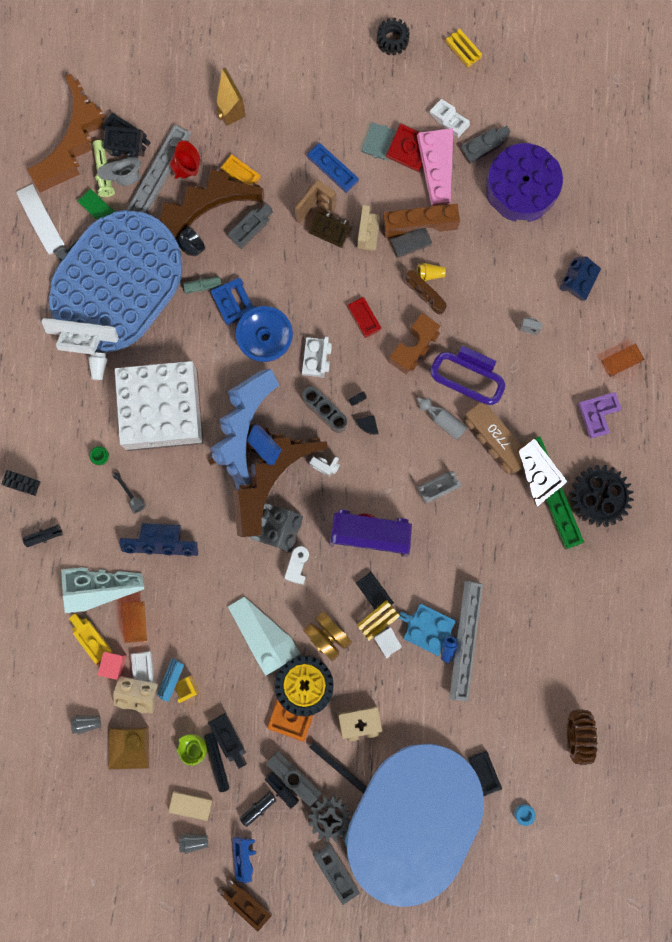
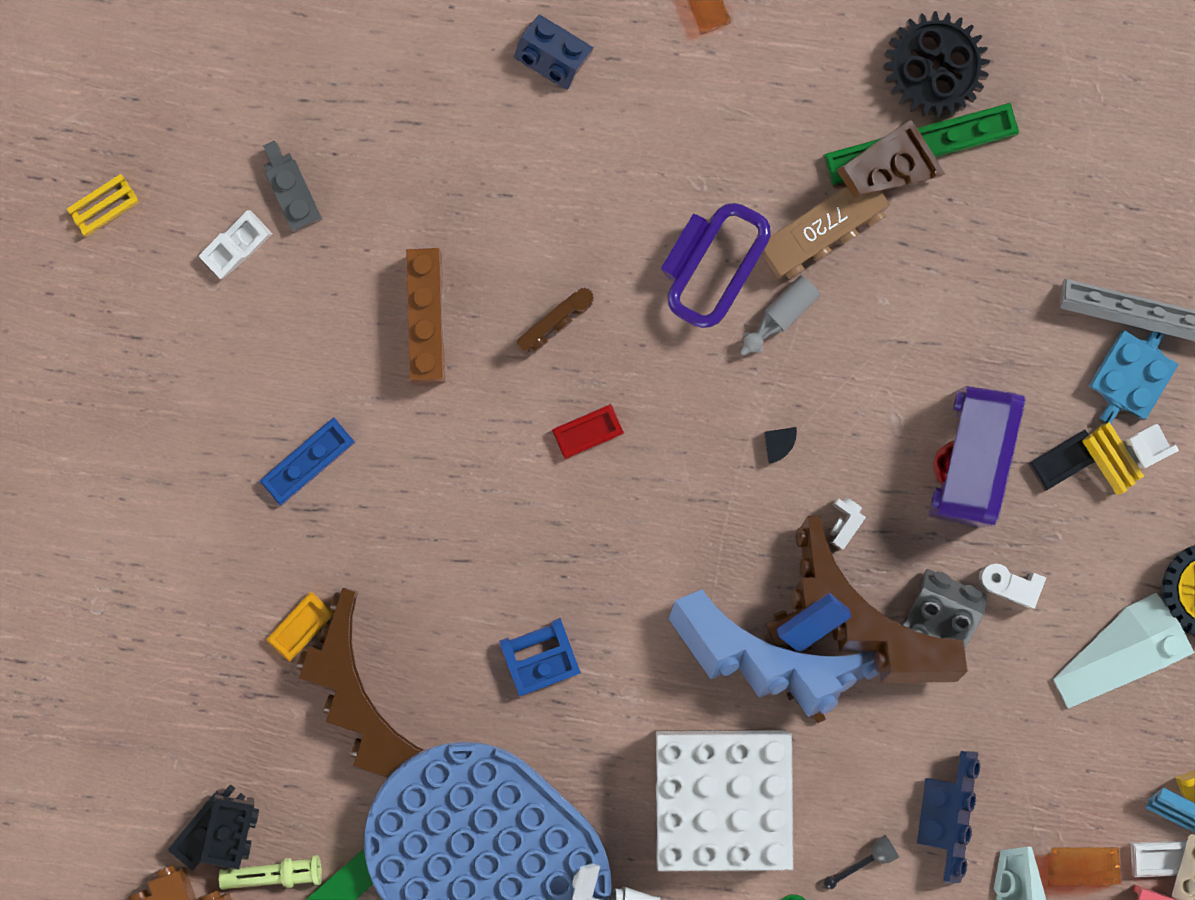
camera: 85 degrees left, 5 degrees up
(121, 172) = (283, 841): light grey piece -> none
(158, 172) = (287, 774): light grey tile -> none
(185, 160) = (273, 722): red piece -> none
(190, 242) = (427, 724): black hair -> none
(202, 284) = (504, 710): sand green axle -> none
(229, 100) = (169, 636): pearl gold slope -> none
(250, 226) = (405, 617): dark grey hinge -> none
(261, 322) = (634, 607): blue dish -> none
(315, 193) = (373, 480): medium nougat bracket -> none
(316, 356) = (652, 521): white bracket -> none
(321, 401) = (764, 510): dark grey beam -> none
(324, 638) = (1136, 544): pearl gold wheel -> none
(330, 228) = (422, 475): dark brown bracket -> none
(357, 398) = (733, 456): black tile -> none
(368, 230) = (433, 409): tan bracket -> none
(378, 141) = (266, 371): clear light blue piece -> none
(393, 27) = (51, 323): black tyre -> none
(405, 148) = (284, 321): red tile -> none
(406, 357) = (627, 328): dark orange arch -> none
(411, 242) = (460, 337): flat silver tile -> none
(430, 272) = (519, 309): yellow cone -> none
(436, 157) = (319, 275): bright pink wing -> none
(438, 487) = (898, 334): light grey hinge -> none
(449, 646) = (1166, 344): blue pin -> none
(524, 182) = (367, 97): dark purple piece -> none
(531, 326) = (631, 146): light grey plate -> none
(594, 412) = (793, 59): medium lavender plate -> none

